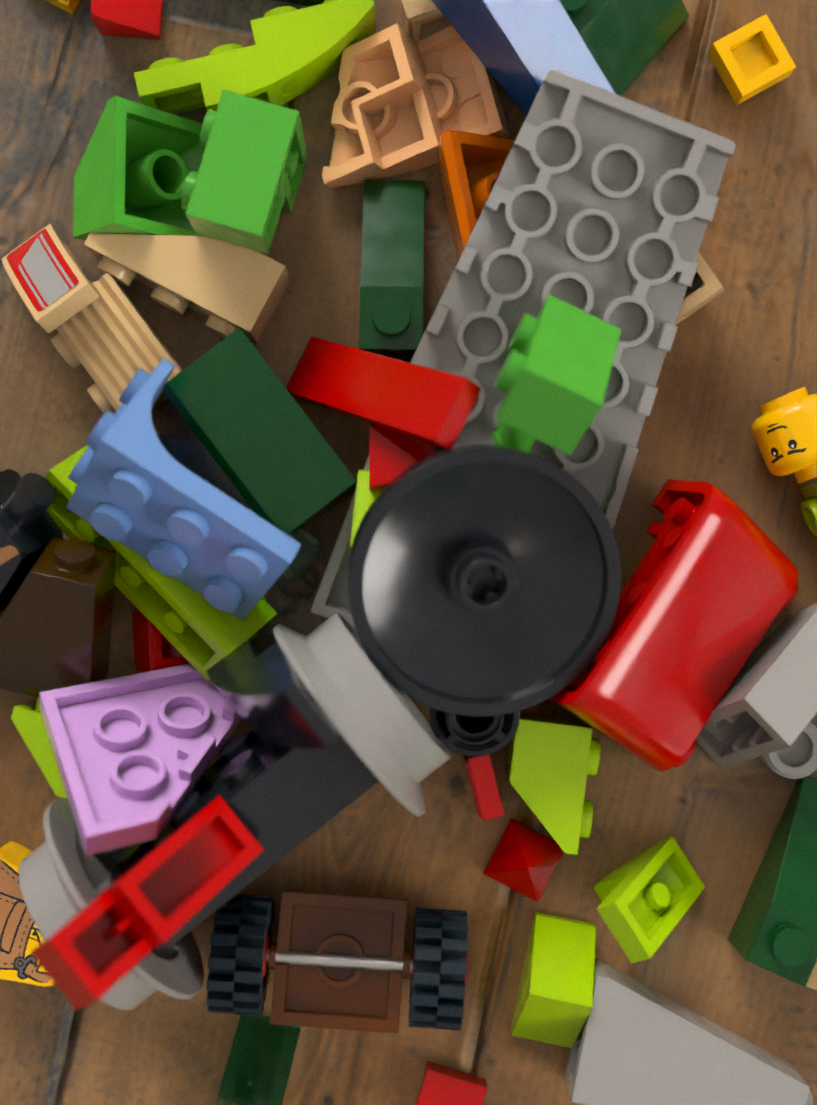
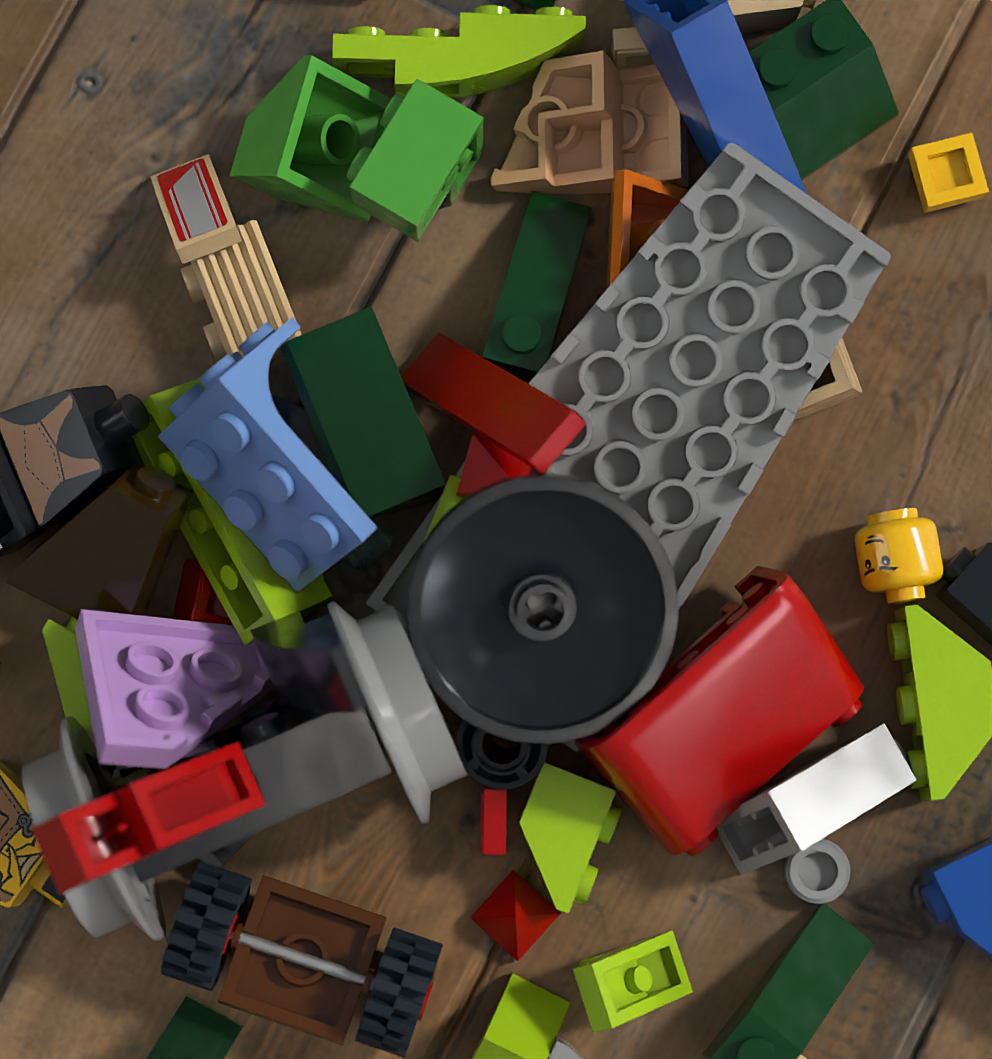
camera: 15 degrees right, 5 degrees down
(197, 272) = (349, 245): tan slope -> none
(554, 377) = (658, 430): bright green brick -> none

